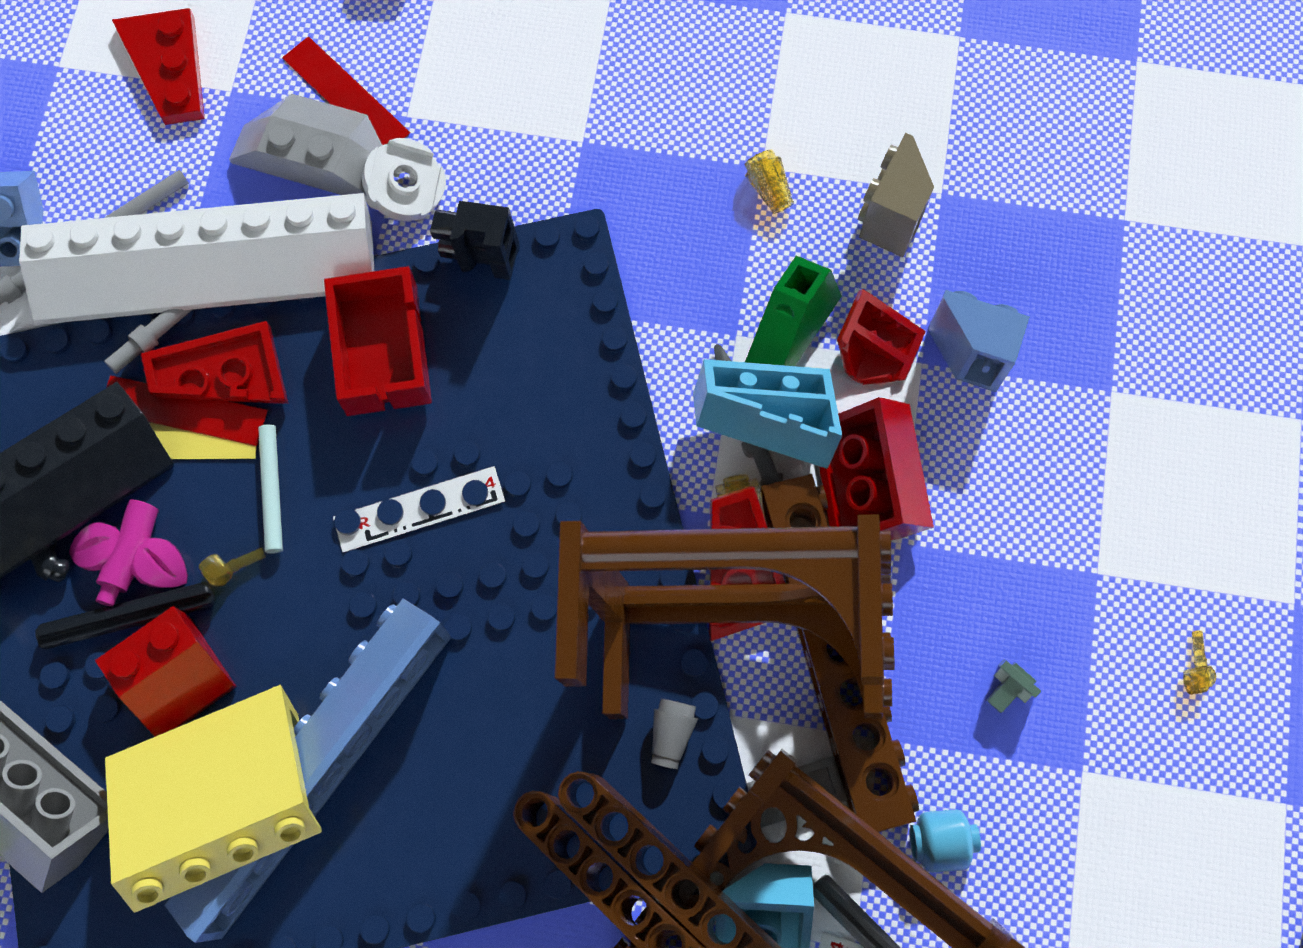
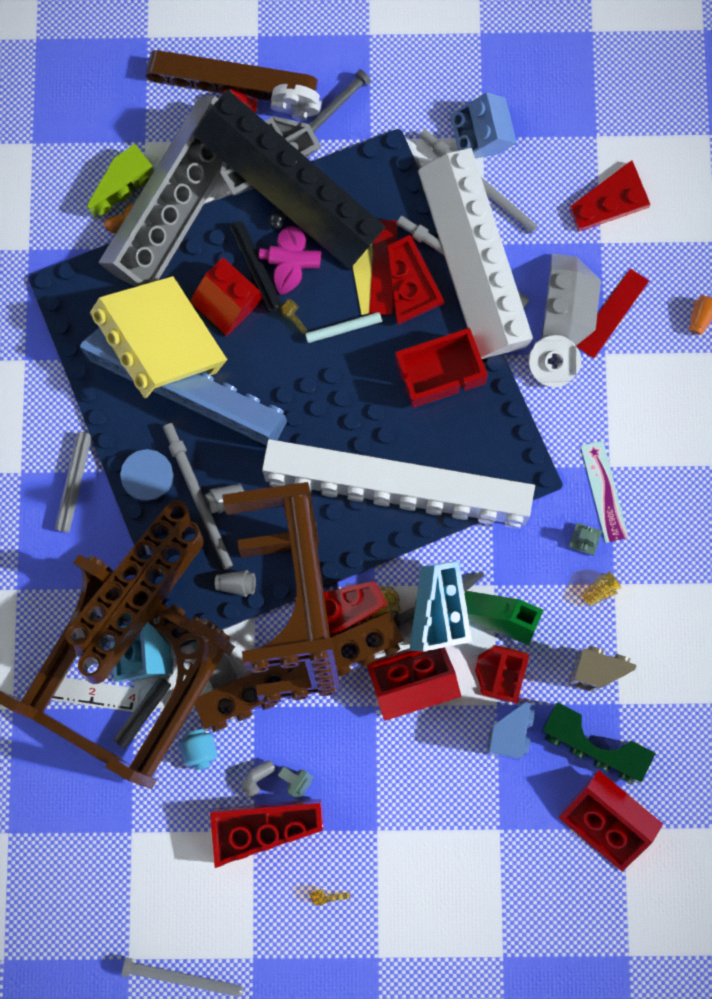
camera: 85 degrees right, 5 degrees up
(414, 518) = (329, 391): white sticker -> none
(419, 798) = (178, 450): none -> light grey bar
(454, 862) = (146, 475): none -> medium blue tile
(476, 236) = (517, 412): black hips -> none
(521, 731) = (214, 497): none -> light grey cone
(554, 441) = (399, 483): none -> white brick
(619, 155) = (604, 491): none -> sticker
(688, 191) = (585, 539): none -> sand green brick
(996, 752) = (255, 774): none -> light grey arm
(1027, 192) = (629, 760): none -> dark green arch
(1084, 748) = (261, 827): none -> red wedge
(1118, 228) = (611, 821): none -> red slope

